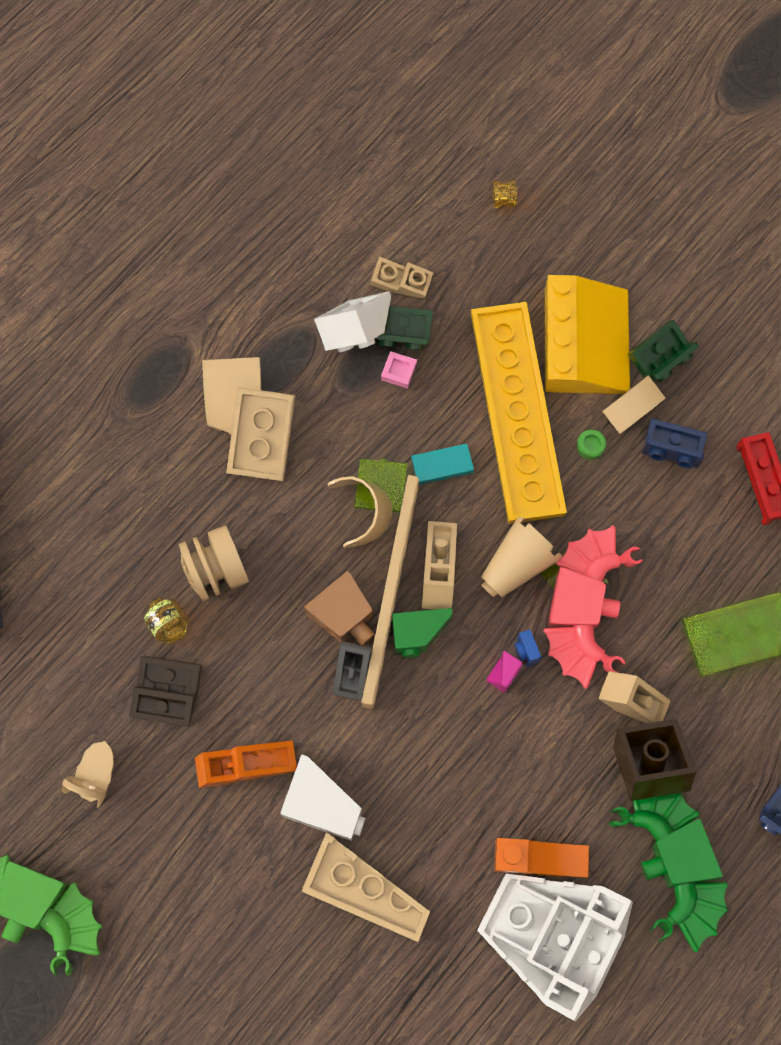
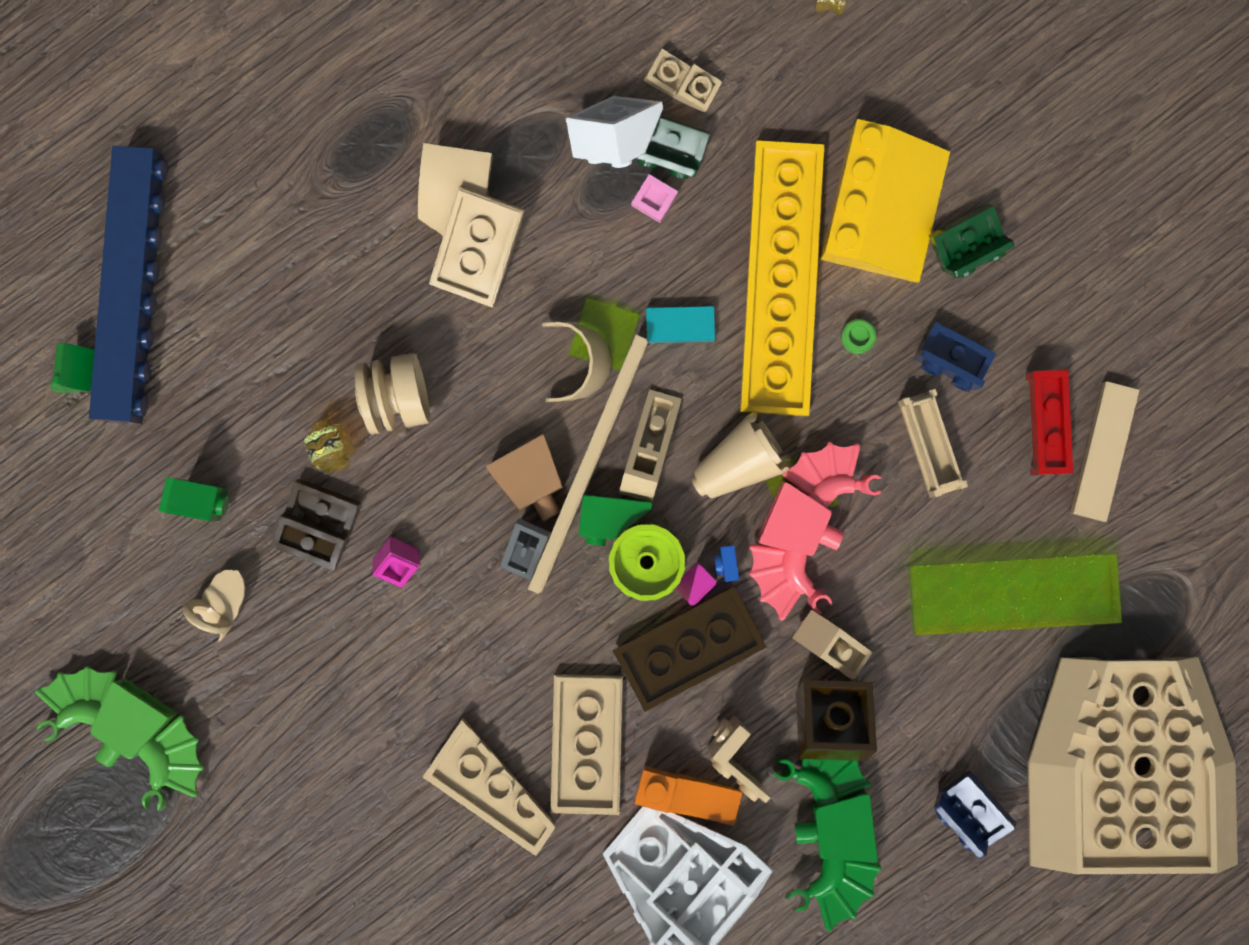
camera: 15 degrees right, 15 degrees up
(57, 686) = (193, 499): none -> green slope
(241, 708) = (396, 562): none -> dark pink slope
(245, 763) = (388, 626): orange slope -> none
(321, 803) = (463, 687): white slope -> none
(441, 834) = (586, 744): none -> tan tile
(453, 676) = (649, 582): none -> lime wheel
(511, 728) = (689, 648): none -> dark brown plate
(563, 796) = (728, 739): none -> tan bracket
(634, 404) = (920, 299): tan slope -> none
(674, 516) = (931, 444): none -> tan container

